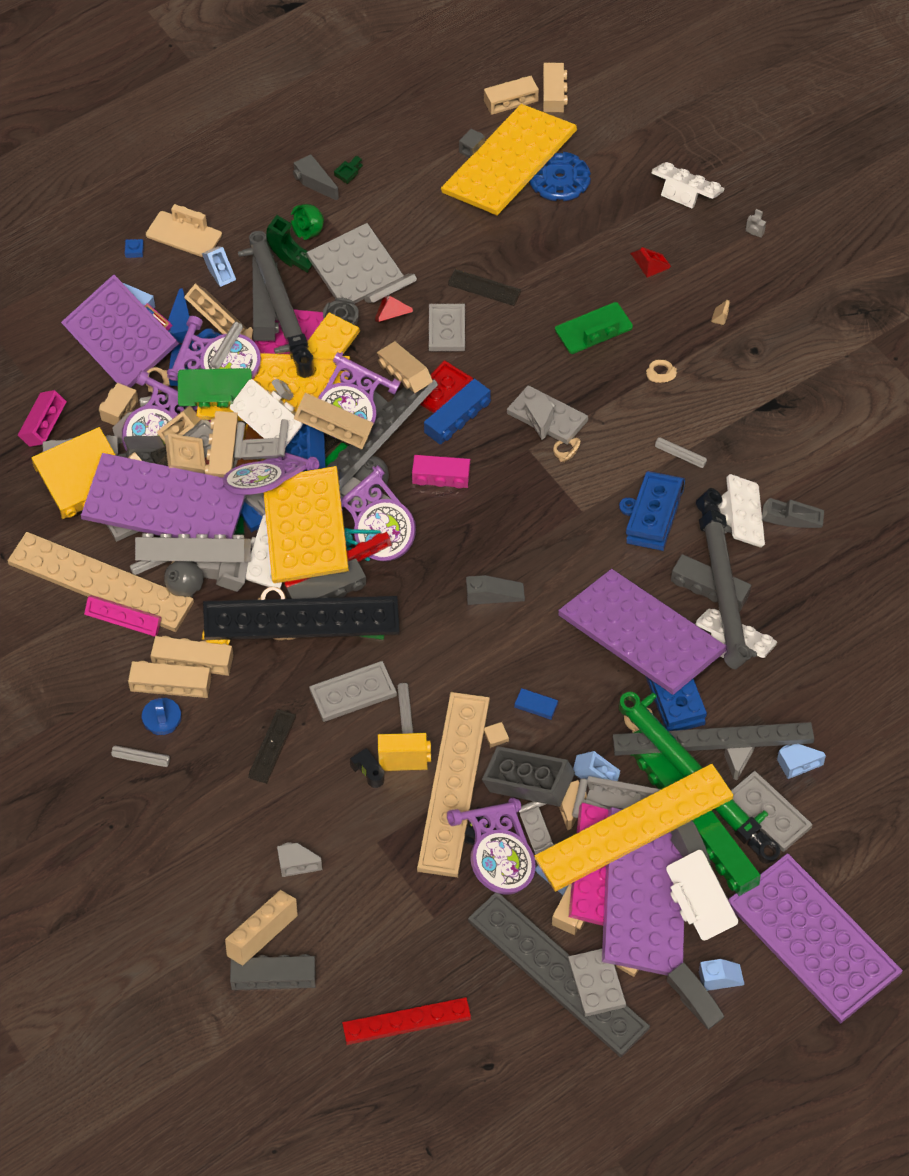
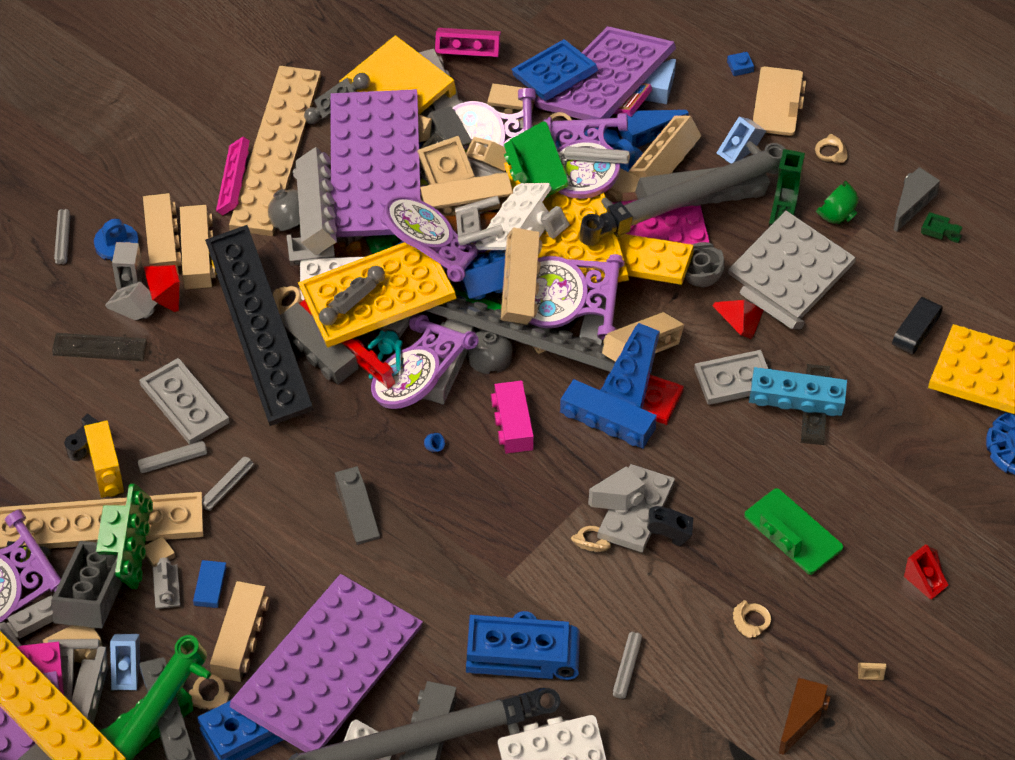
camera: 75 degrees right, 5 degrees down
(74, 524) = (313, 115): none -> dark grey plate
(99, 365) = (554, 70): none -> blue plate
(203, 704) = (127, 264): none -> light grey brick
(234, 677) = (164, 285): none -> red slope
(235, 711) = (132, 302): none -> light grey slope
(238, 210) = (839, 157): none -> tan piece
(312, 537) = (352, 295): none -> dark grey plate
(436, 207) = (917, 325): none -> black beam
(441, 373) = (633, 367): none -> blue wing
(442, 674) = (227, 483): none -> light grey axle
(447, 529) = (436, 440): none -> blue hinge
(480, 288) = (798, 391): none -> dark azure brick
(487, 741) = (124, 534): none -> green bracket
(530, 733) = (166, 584): none -> light grey hinge
(574, 395) = (670, 524): none -> black leg
(587, 688) = (239, 631): none -> tan brick
(747, 358) = (804, 711): none -> reddish brown slope

